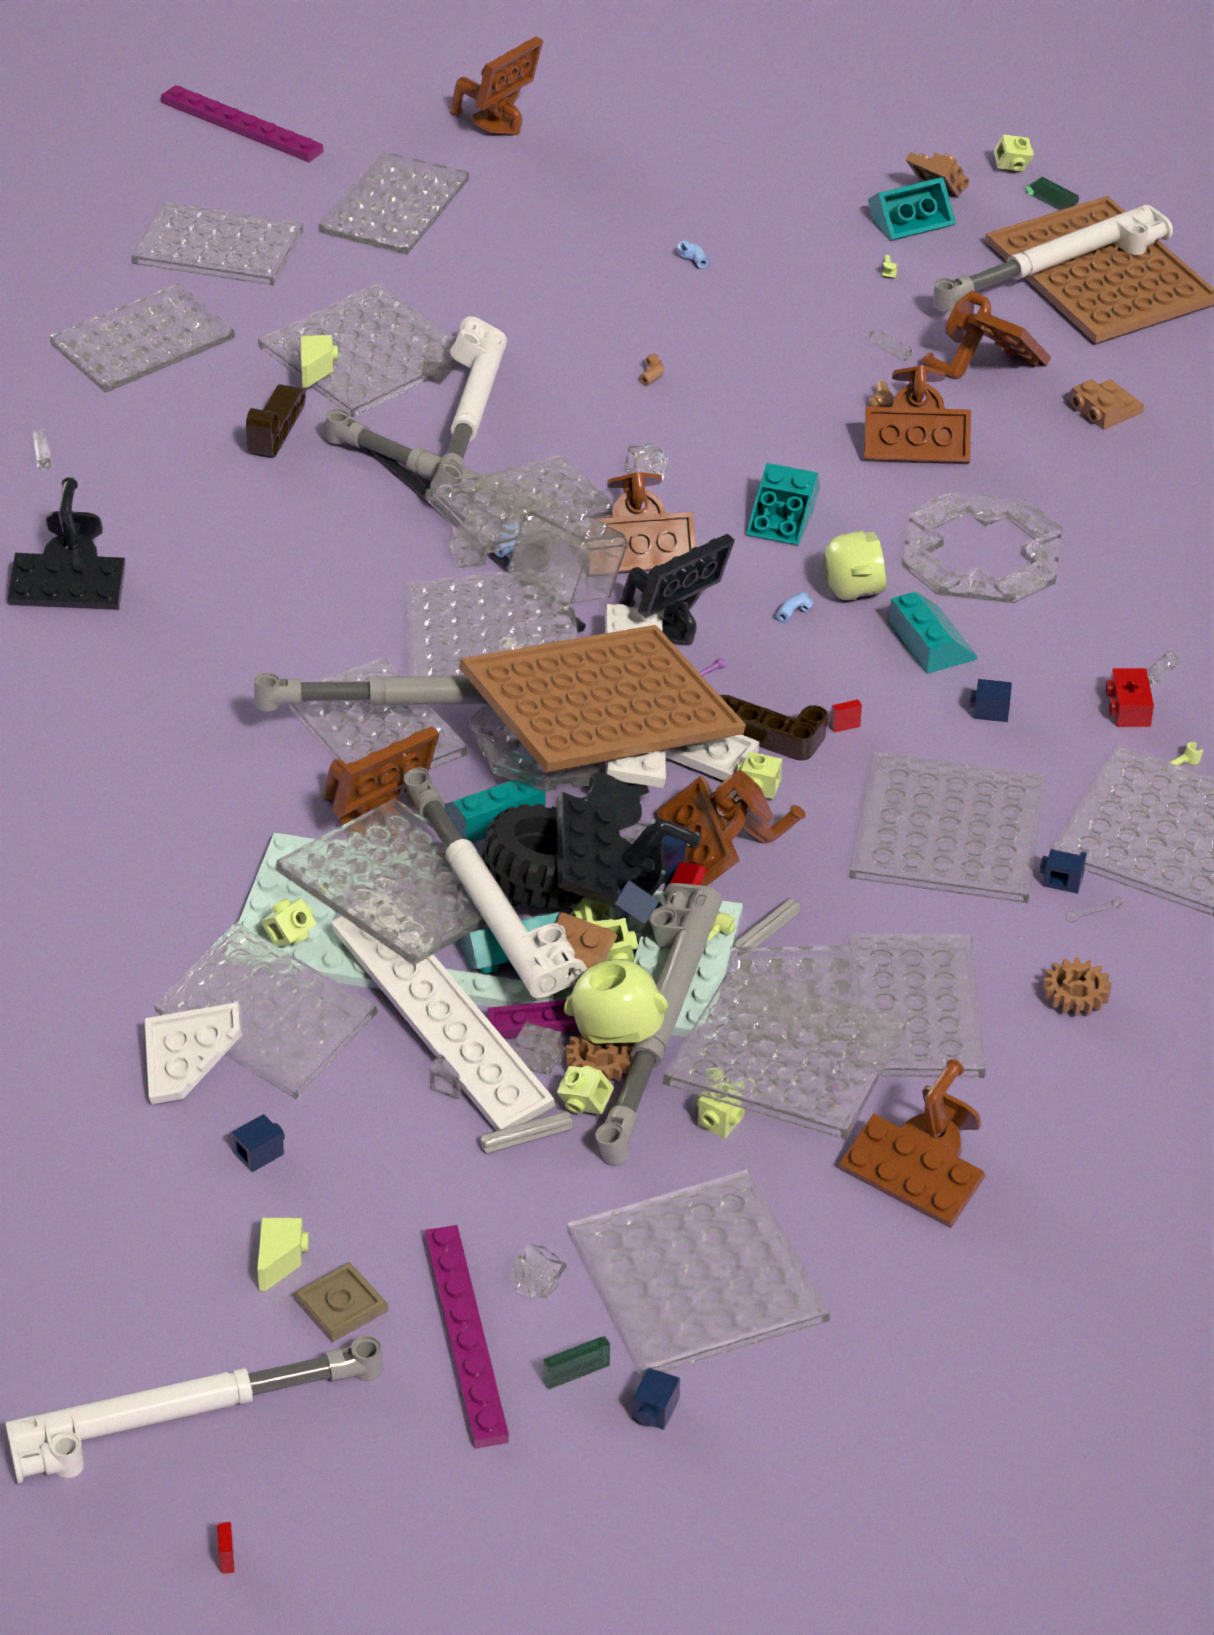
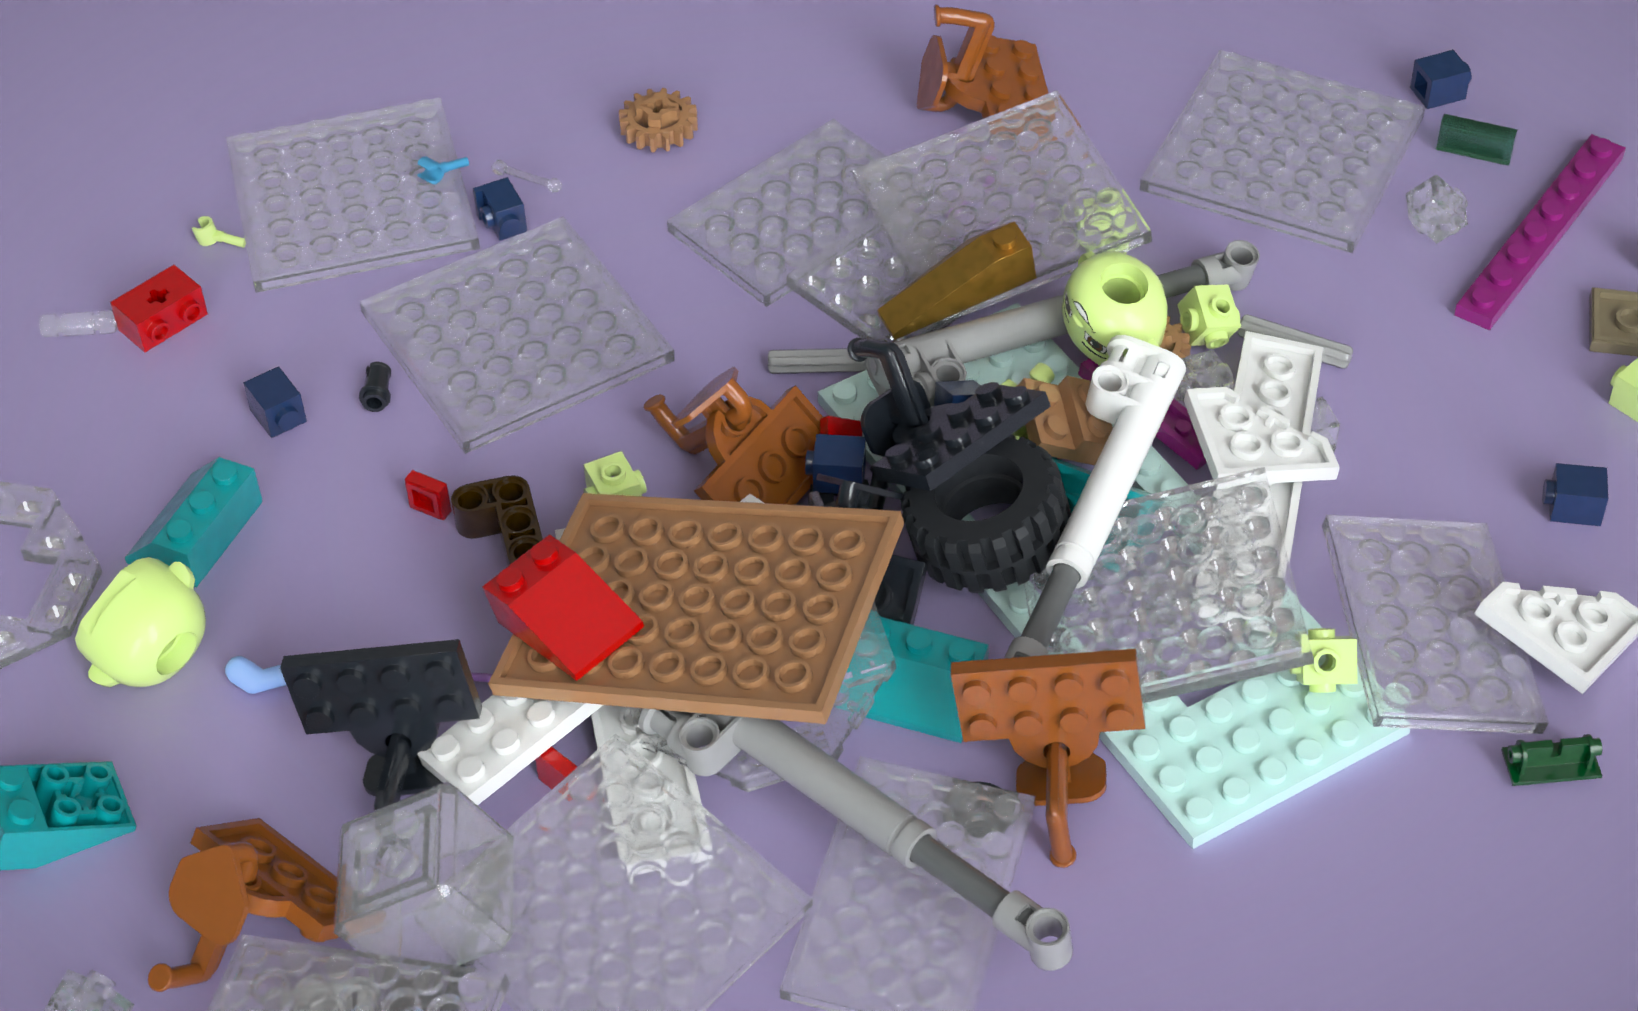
camera: 130 degrees left, 5 degrees up
(135, 990) = (1553, 762): none -> dark green hinge
(457, 1006) = (1245, 439): none -> white plate
(659, 650) = (561, 607): none -> red slope
(732, 979) = (962, 279): none -> pearl gold wedge
(957, 742) = (375, 393): none -> black pin
(1130, 848) = (435, 171): none -> dark azure hand

